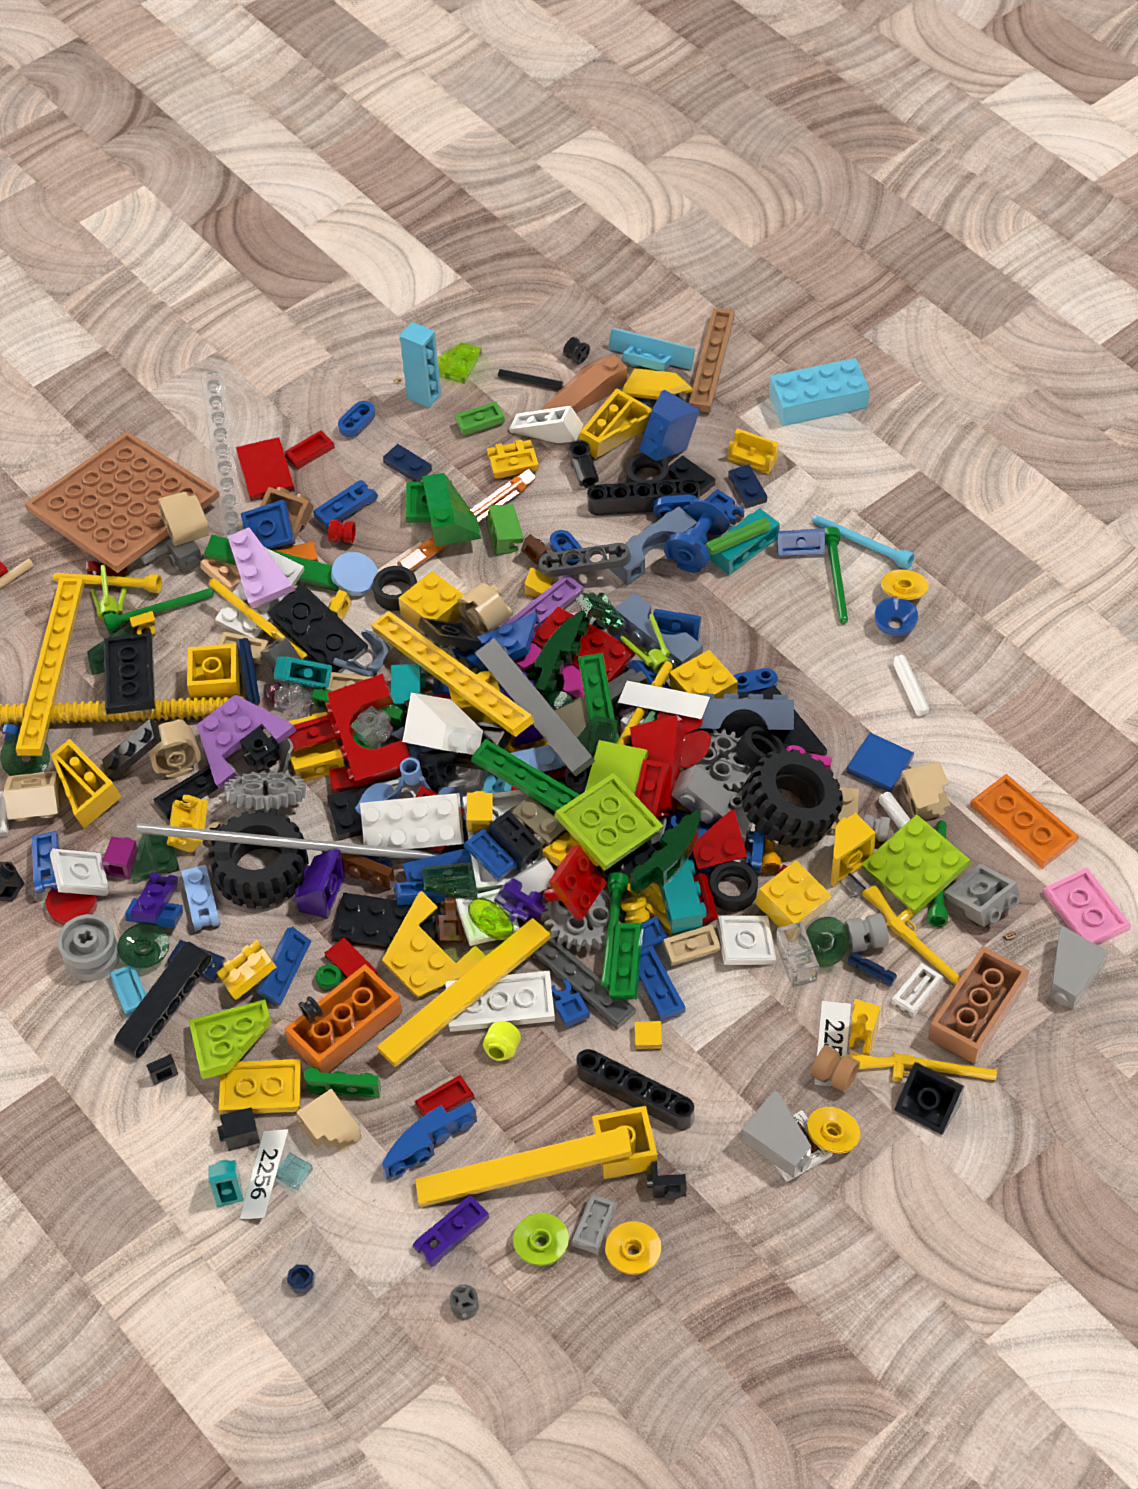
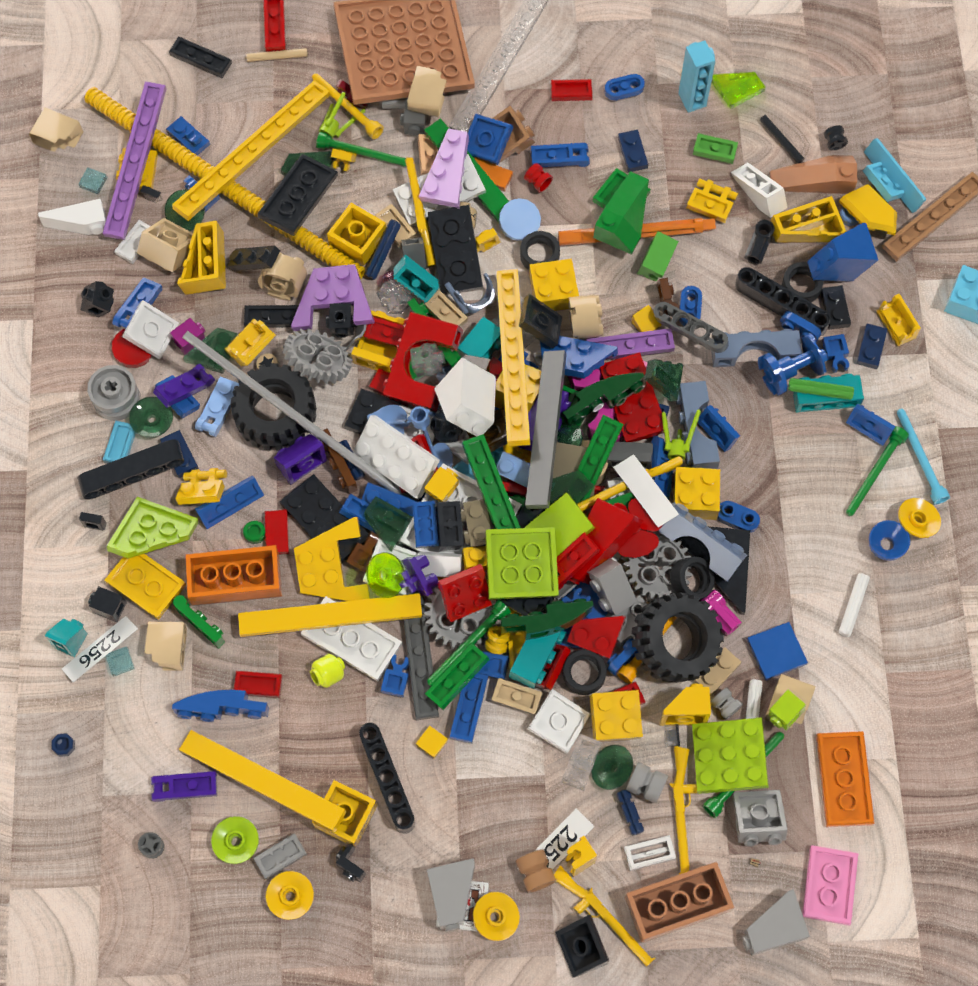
camera: 35 degrees right, 15 degrees up
(264, 467) = (527, 84): red tile -> none
(310, 1009) = (209, 555): black bush -> none
(933, 790) = (786, 710): none -> lime brick

